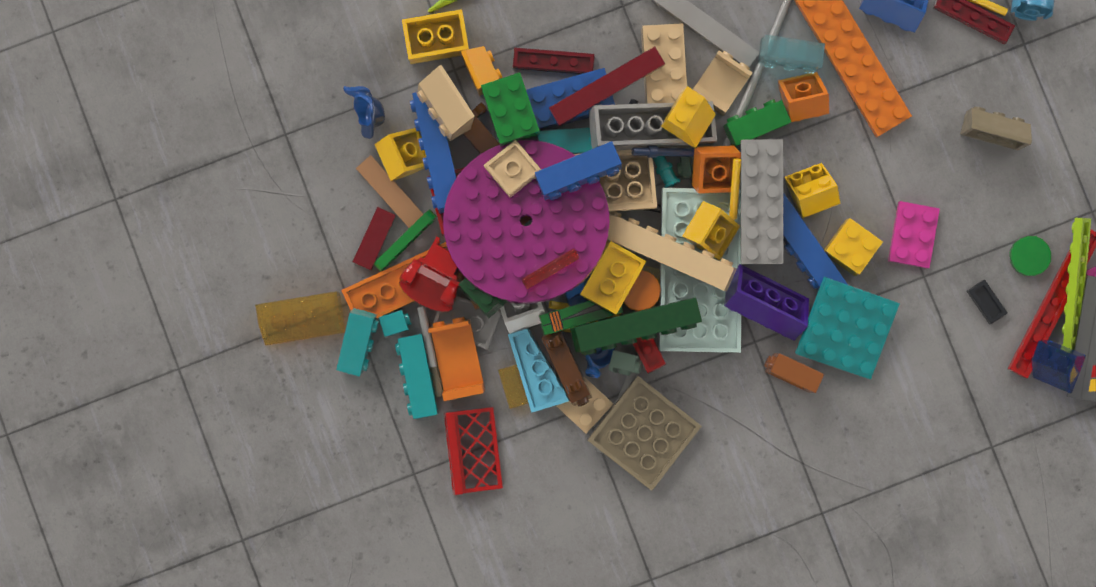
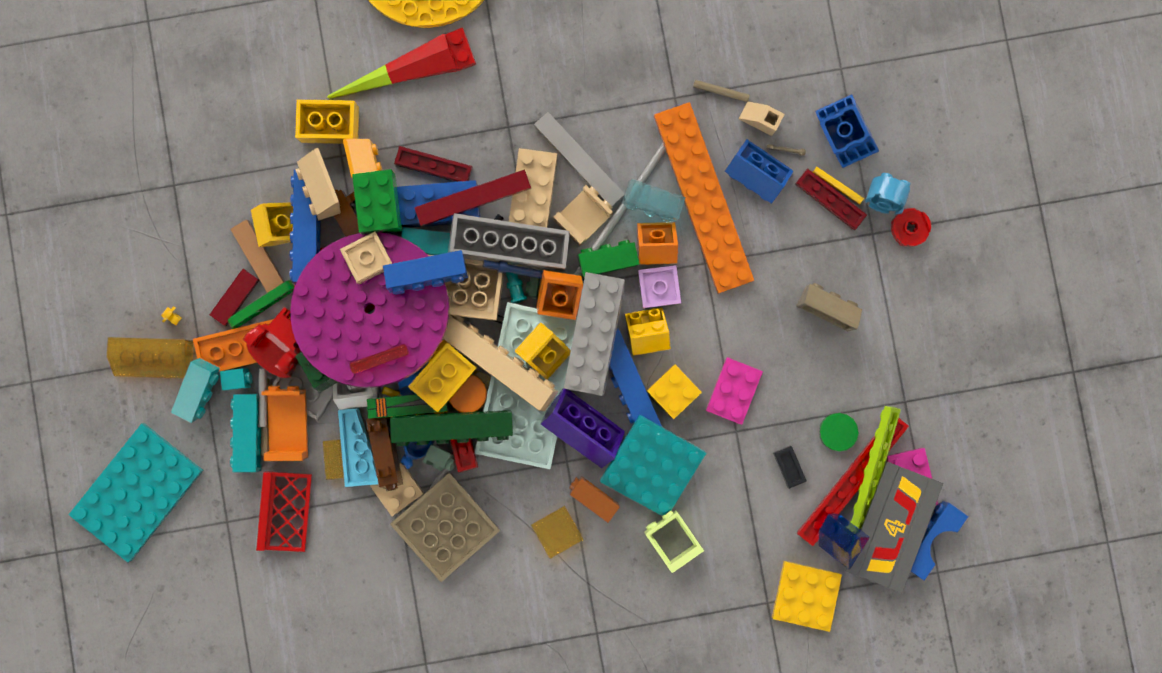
camera: 15 degrees right, 0 degrees up
(310, 269) = (171, 316): none -> yellow plate
(313, 461) = (135, 492): none -> teal plate
(368, 109) = (252, 175): hair -> none
(689, 117) = (542, 242): yellow slope -> none
(735, 188) = (572, 316): yellow bar -> none
(760, 416) = (557, 532): none -> clear yellow tile
(815, 141) = (659, 286): none -> lavender plate
(898, 415) = (685, 556): none -> yellowish green window
(1031, 431) = (806, 596): none -> yellow plate
(1058, 40) = (906, 237): none -> red plate

